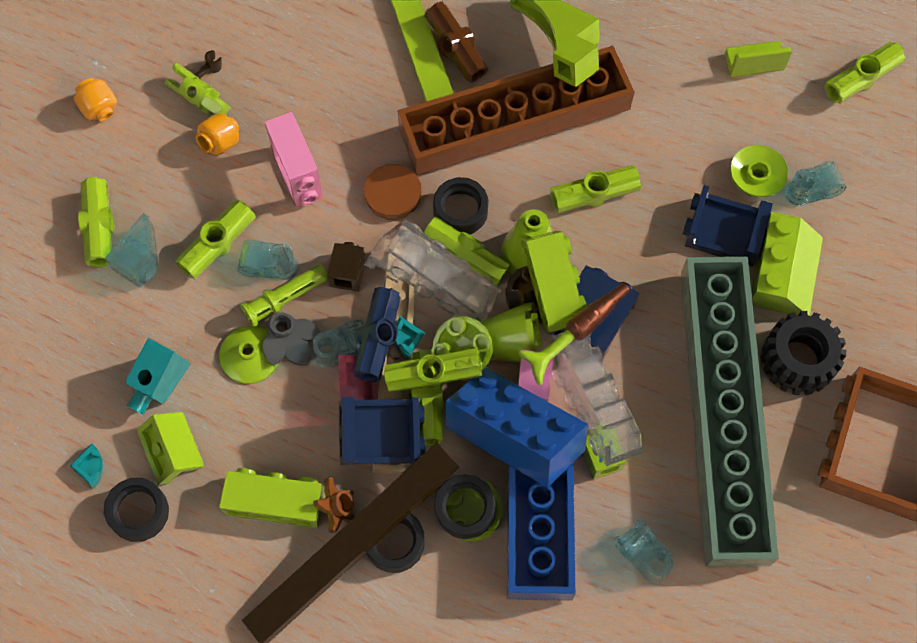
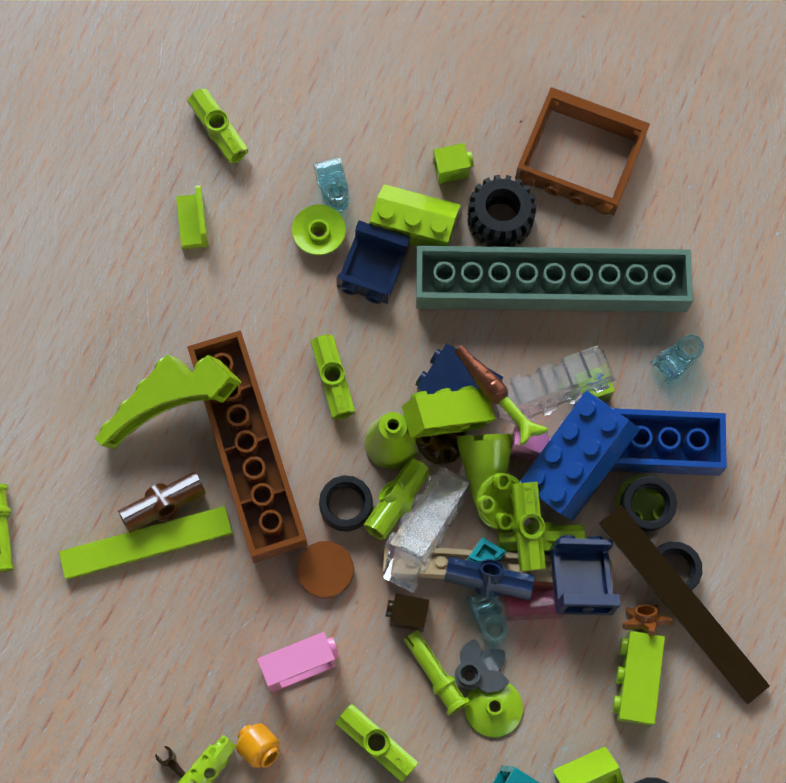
camera: 90 degrees left, 5 degrees up
(267, 260) = (400, 696): clear light blue piece -> none
(856, 302) = (452, 163): none -> lime brick

